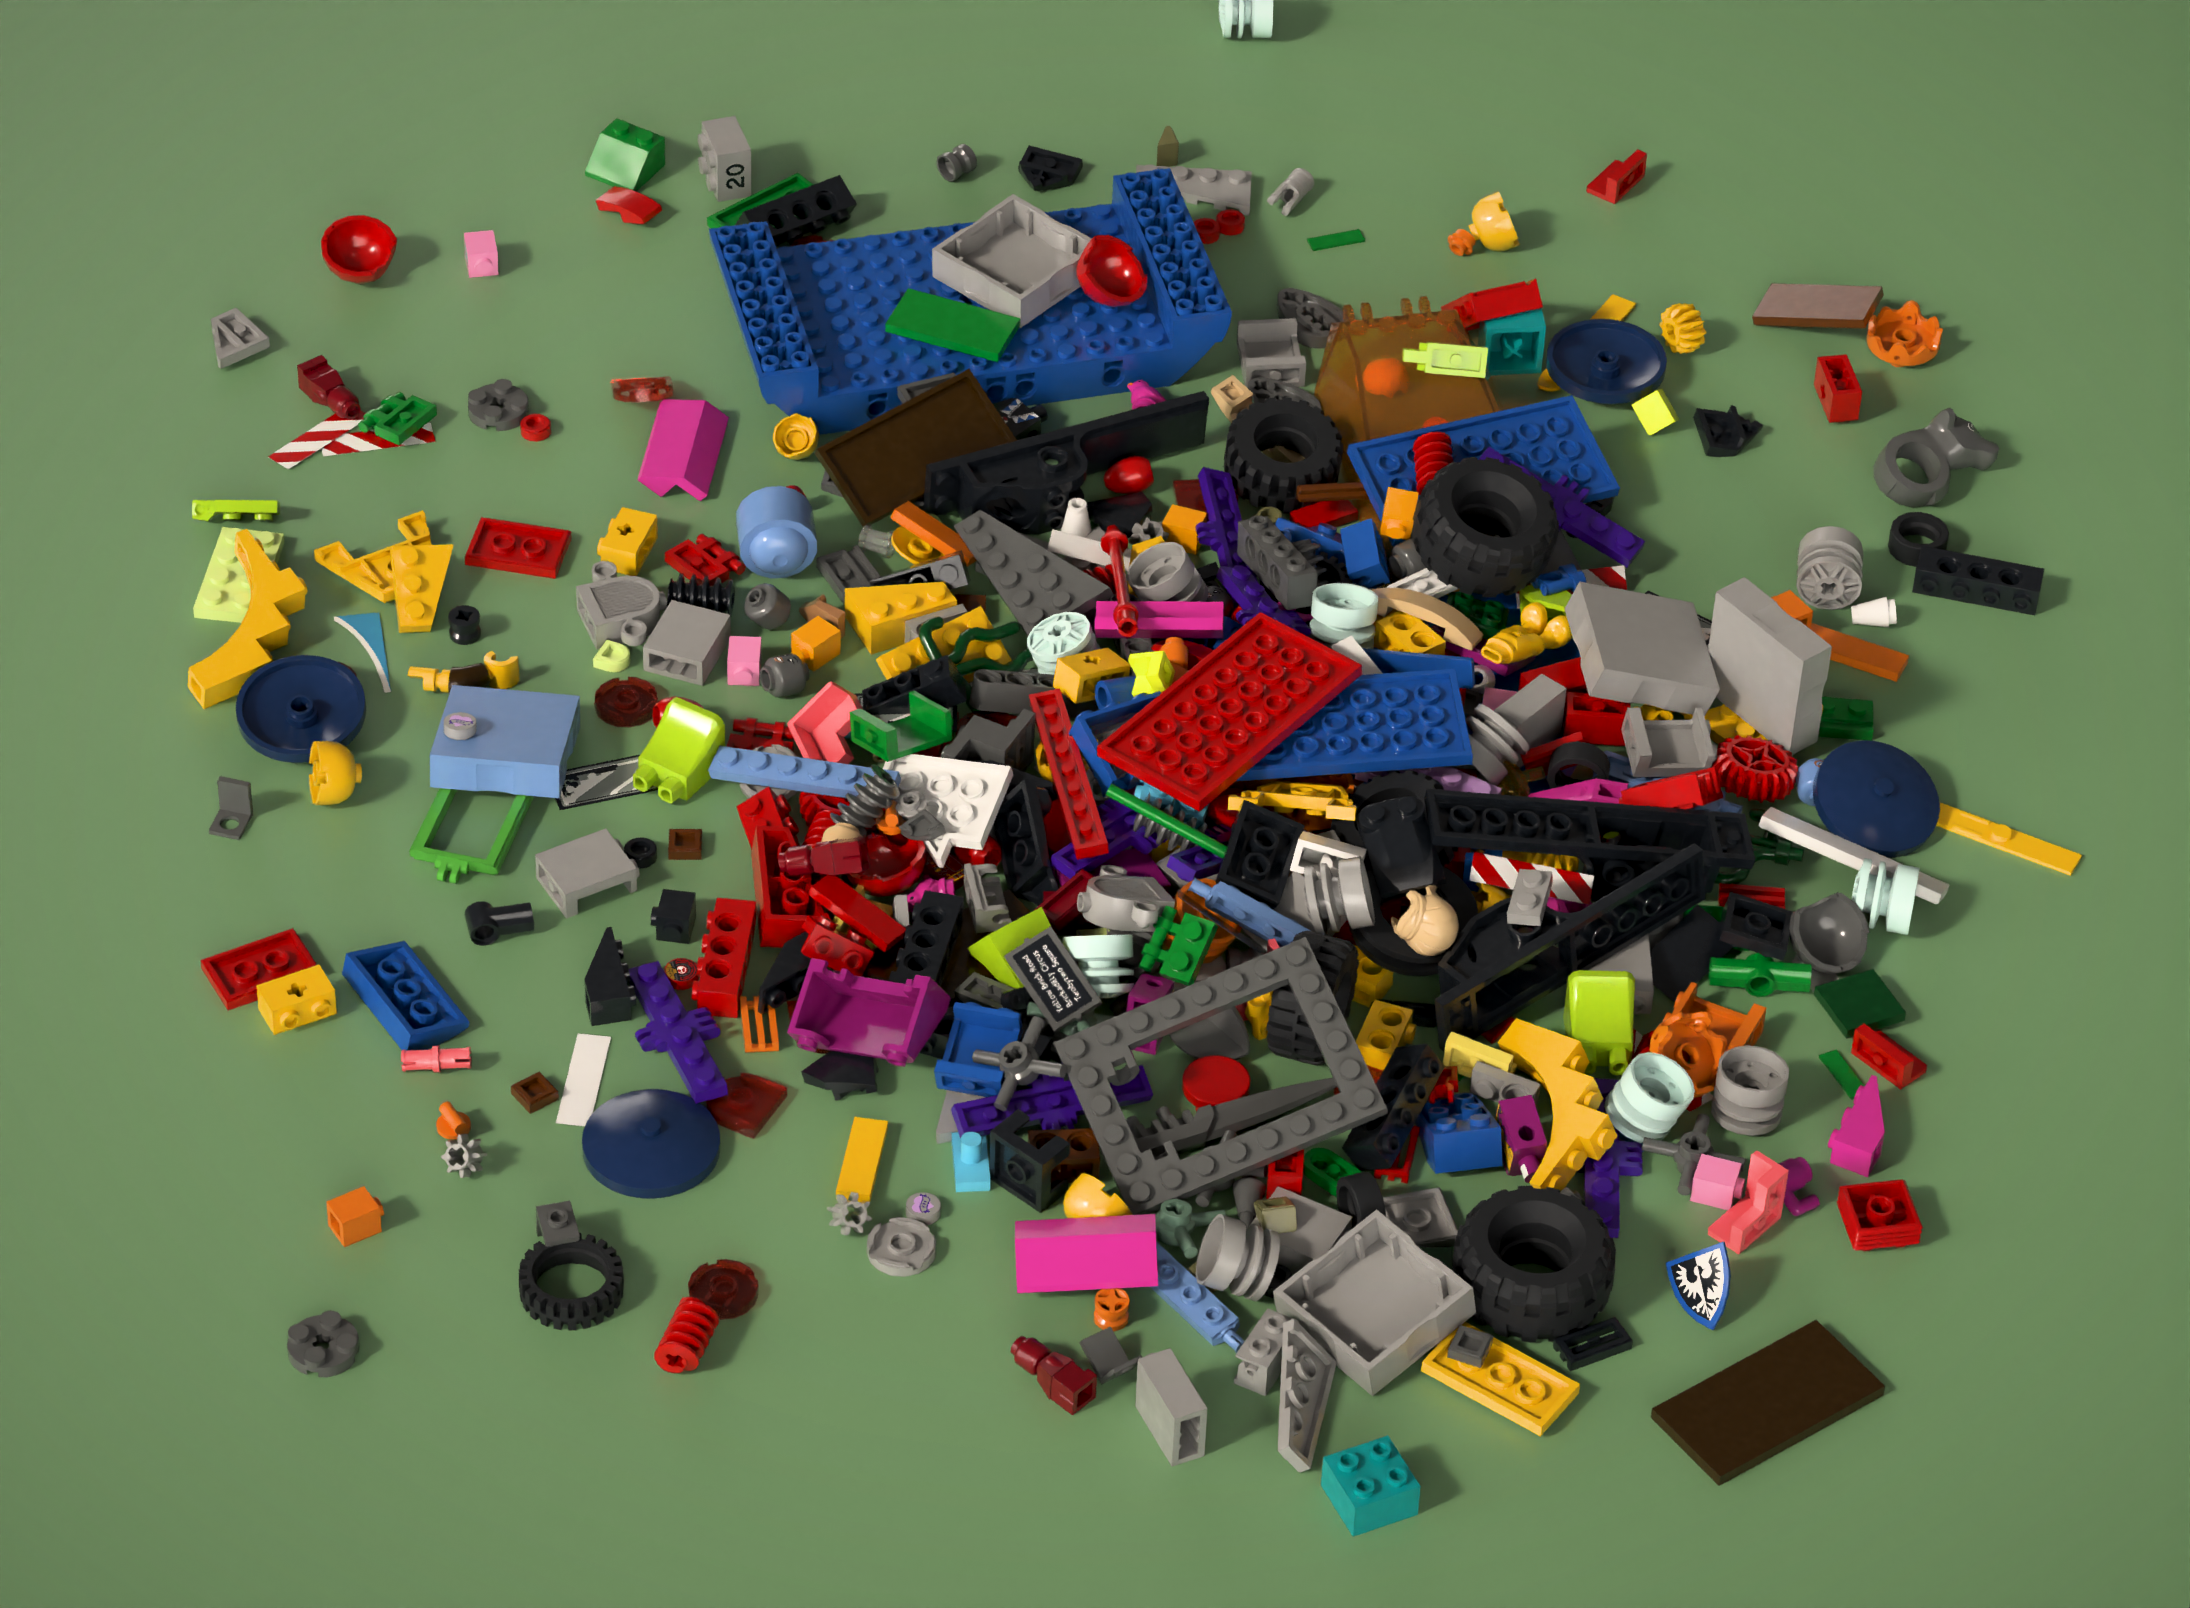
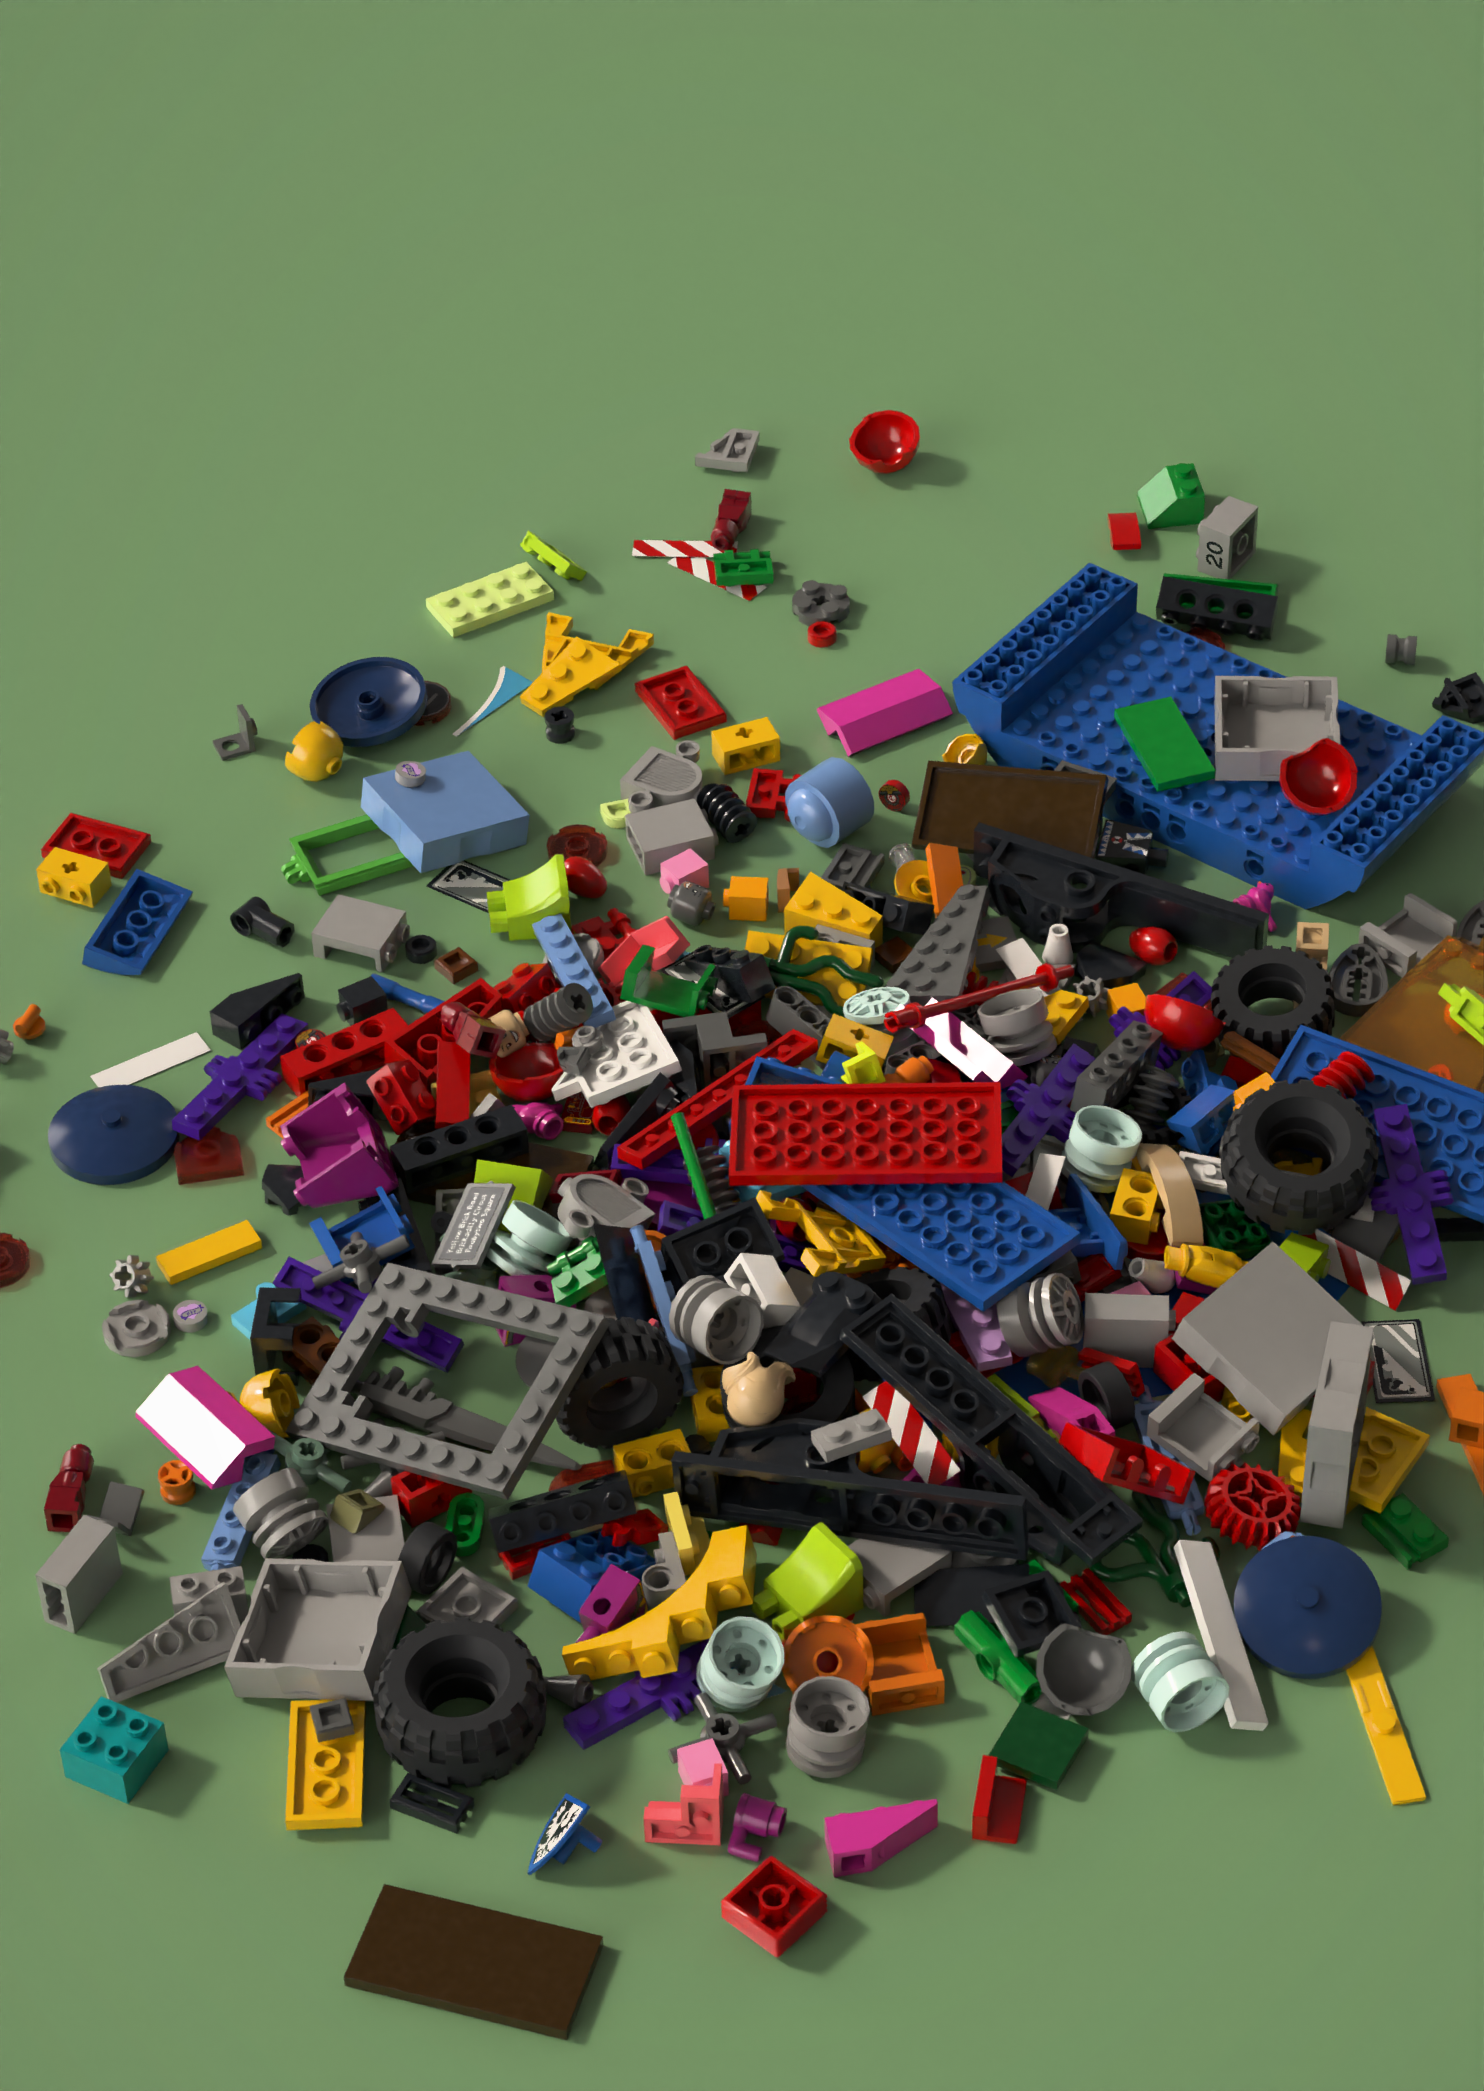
camera: 55 degrees right, 0 degrees up
(263, 629) = (430, 637): yellow arch -> none
(436, 1059) = (86, 977): coral pin -> none
(481, 253) = (970, 498): bright pink brick -> none
(491, 673) = (507, 761): yellow piece -> none
(534, 1092) = (107, 1046): reddish brown tile -> none
(642, 389) = (923, 655): clear red tile -> none
(716, 883) = (396, 992): none -> blue piece
(767, 606) = (754, 850): dark grey head -> none
(985, 898) = (557, 1144): light grey hinge -> none
(1214, 1081) = (495, 1393): red tile -> none
(1265, 498) = (1183, 1023): none -> red cylinder
(1560, 580) = (1323, 1248): blue piece -> none
(1841, 1072) = (949, 1784): green window -> none

